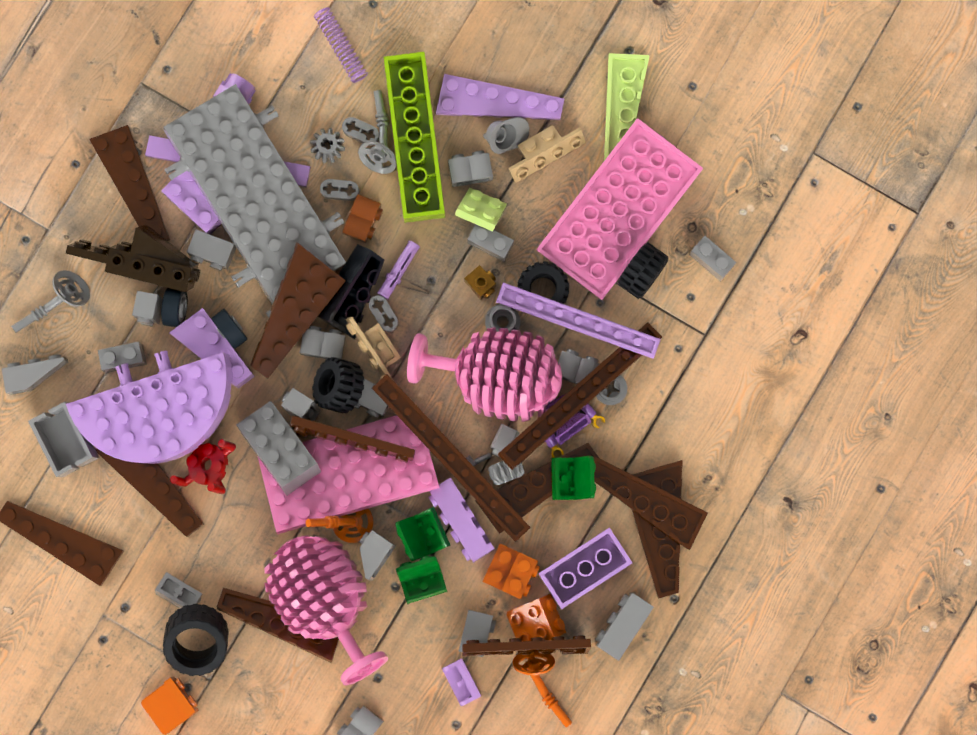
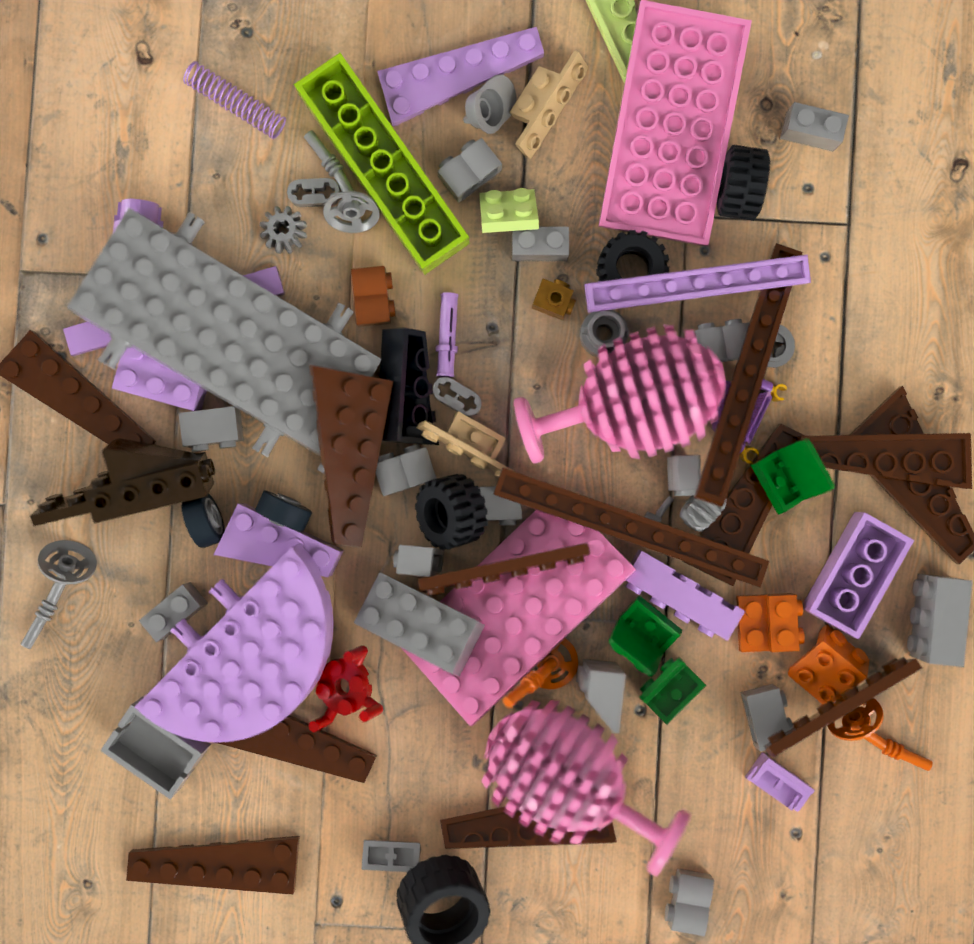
camera: 30 degrees left, 5 degrees up
(28, 376) = (73, 694): light grey slope -> none
(147, 308) = (171, 539): light grey brick -> none
(339, 184) = (323, 270): light grey beam -> none

